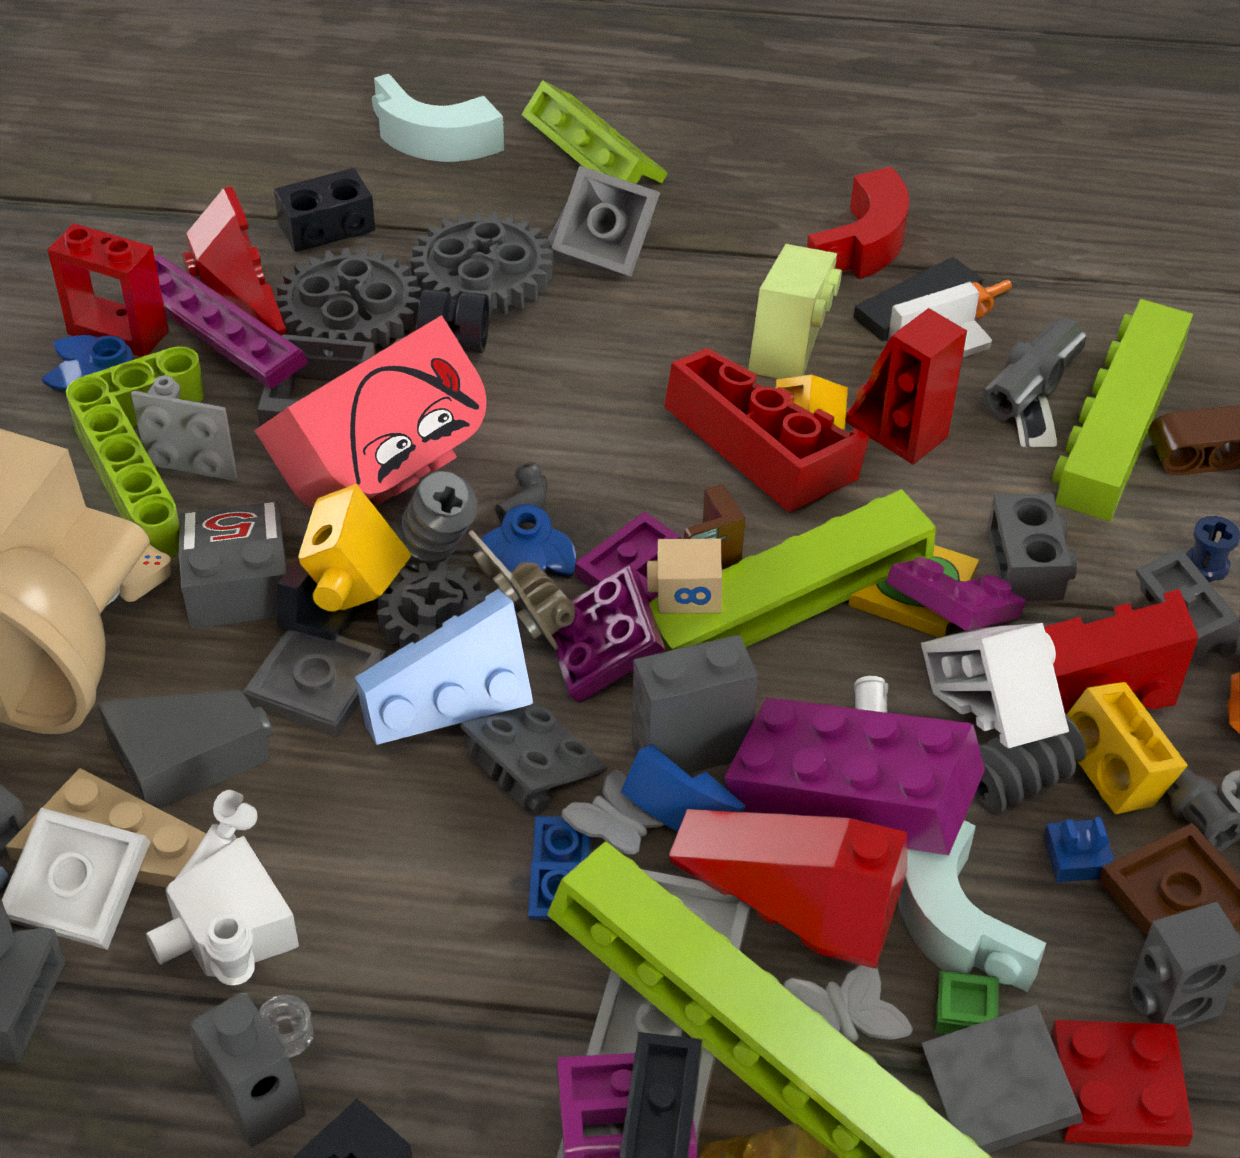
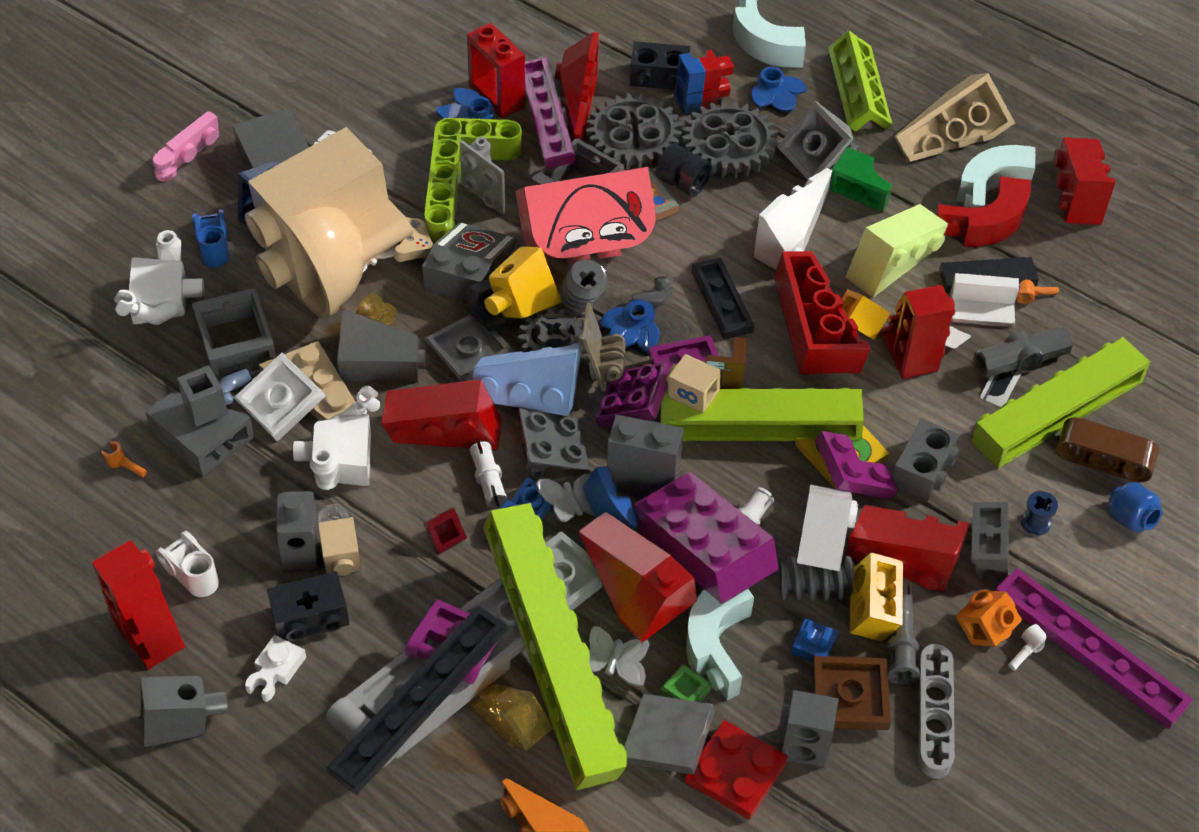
camera: 30 degrees right, 5 degrees up
(142, 681) = (374, 308): none -> clear yellow wheel
(328, 1059) = (340, 546): none -> tan brick
(351, 787) = (443, 415): none -> red wedge
(398, 205) = (701, 81): none -> hips
(469, 953) = (445, 530): none -> dark red slope
(472, 841) = (488, 474): none -> white pin
(496, 185) = (777, 90): none -> blue plate
(617, 462) = (722, 298): none -> black tile
(644, 335) = (791, 219): none -> white wedge
(685, 250) = (857, 180): none -> green arch
(745, 134) = (959, 118): none -> tan wedge
(831, 177) = (986, 168): none -> light aqua arch
(946, 146) = (1083, 180): none -> red wedge

